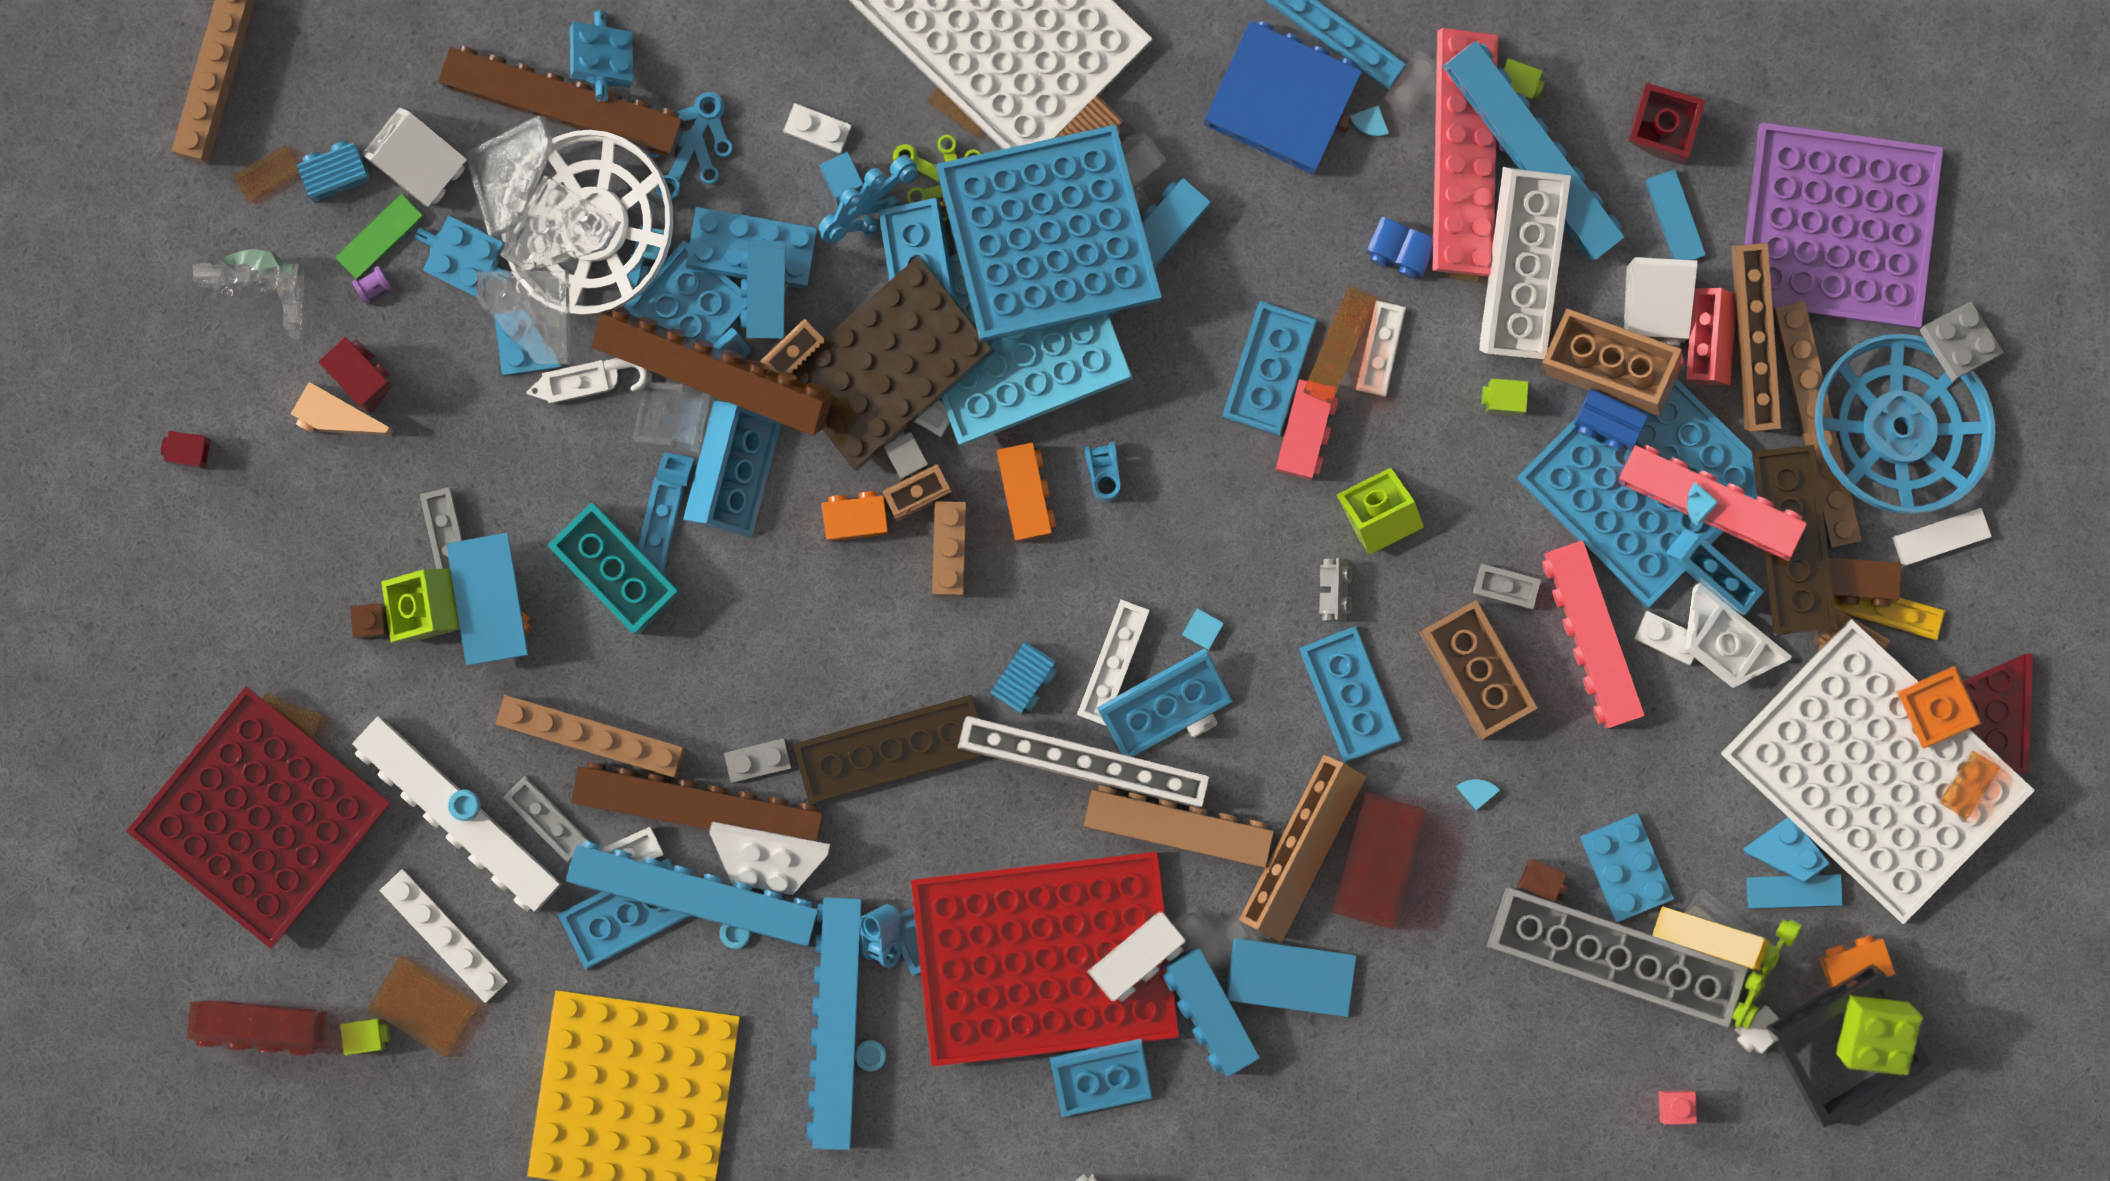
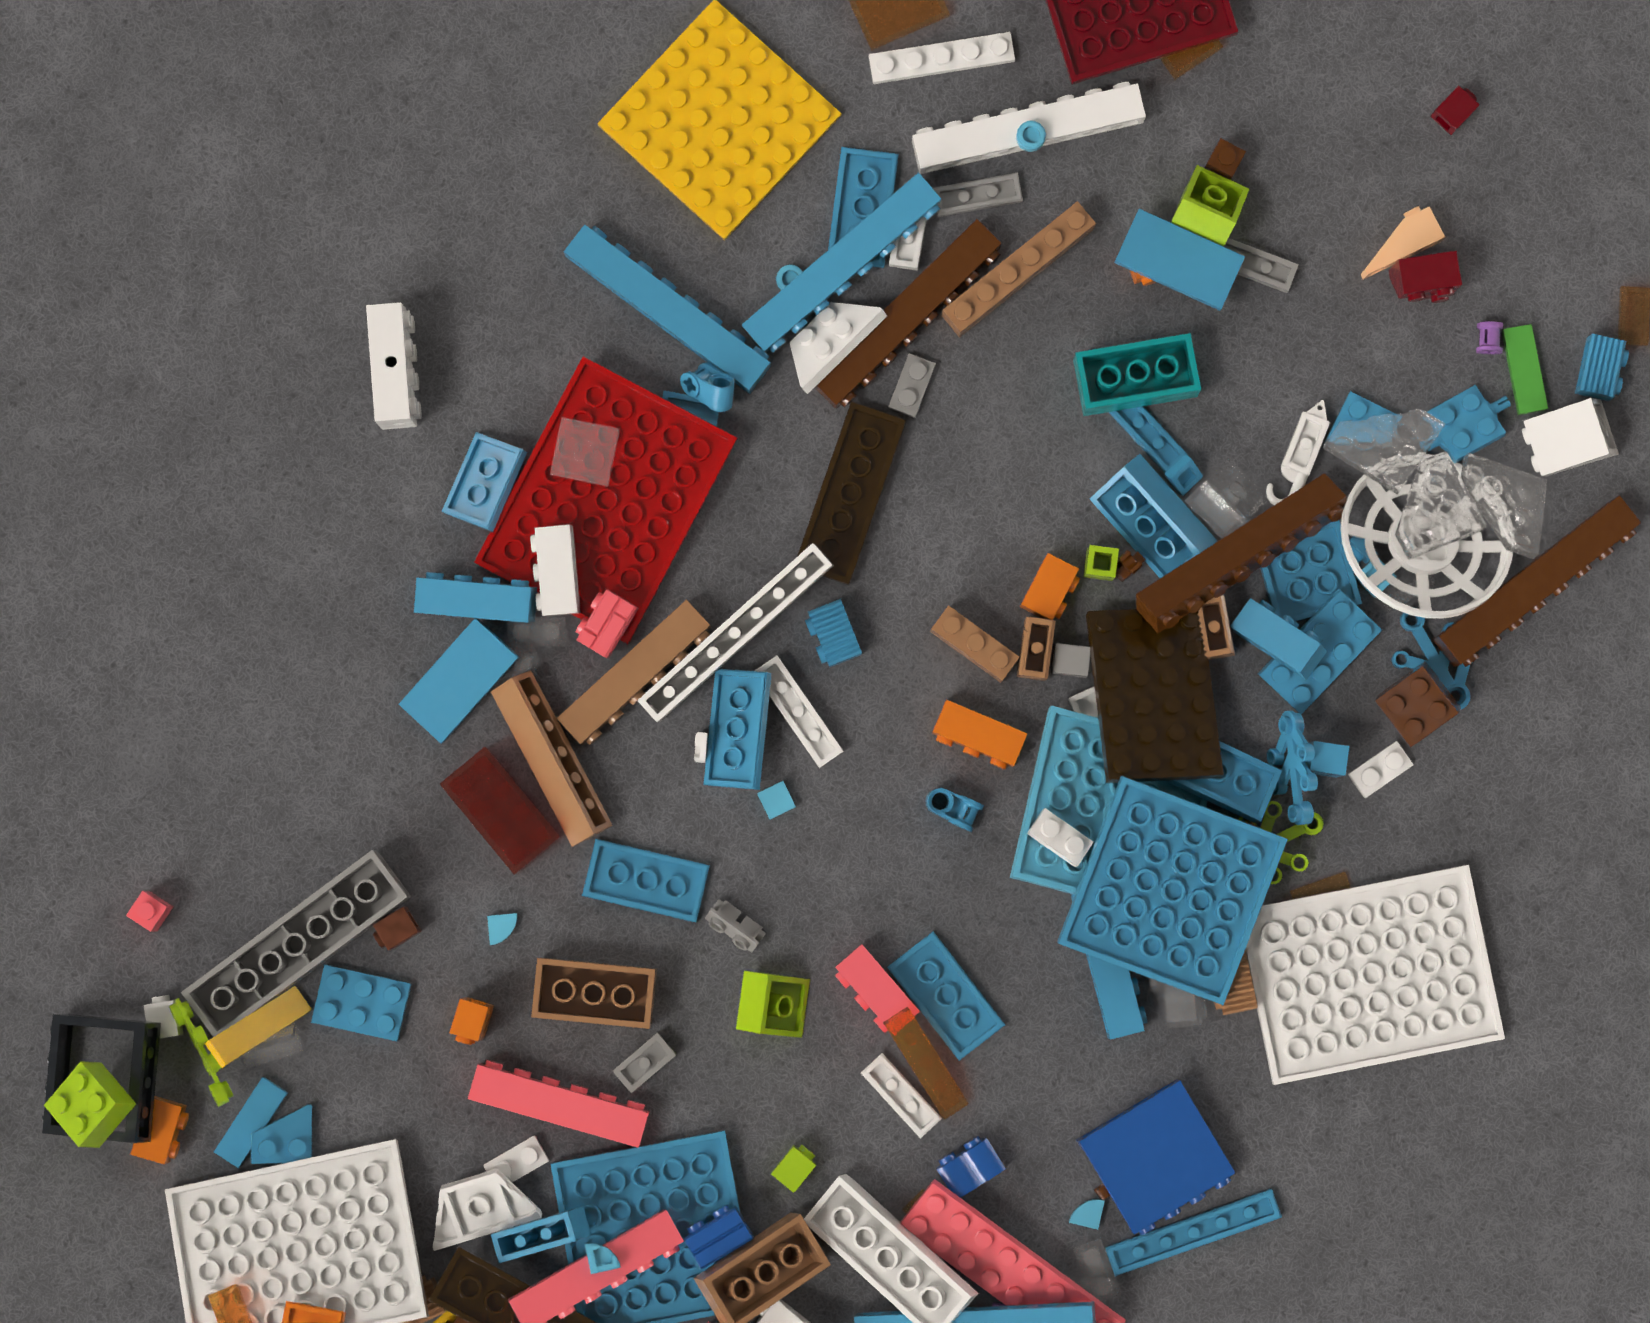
camera: 125 degrees right, 0 degrees up
(252, 275) = (1559, 253): clear hips -> none
(601, 55) = (1554, 637): dark azure plate -> none
(732, 341) = (1252, 586): dark azure plate -> none
(740, 133) = (1418, 704): none -> reddish brown brick
(788, 462) = (1129, 564): none -> reddish brown plate
(803, 487) = (1101, 563): none -> lime brick
(870, 1055) = (625, 318): medium azure tile -> none
(1015, 1005) = (584, 452): none -> clear tile
(1069, 358) = (1060, 837): none -> white plate
(1152, 881) = (606, 623): none -> coral brick
(1576, 759) = (471, 1020): none -> orange brick

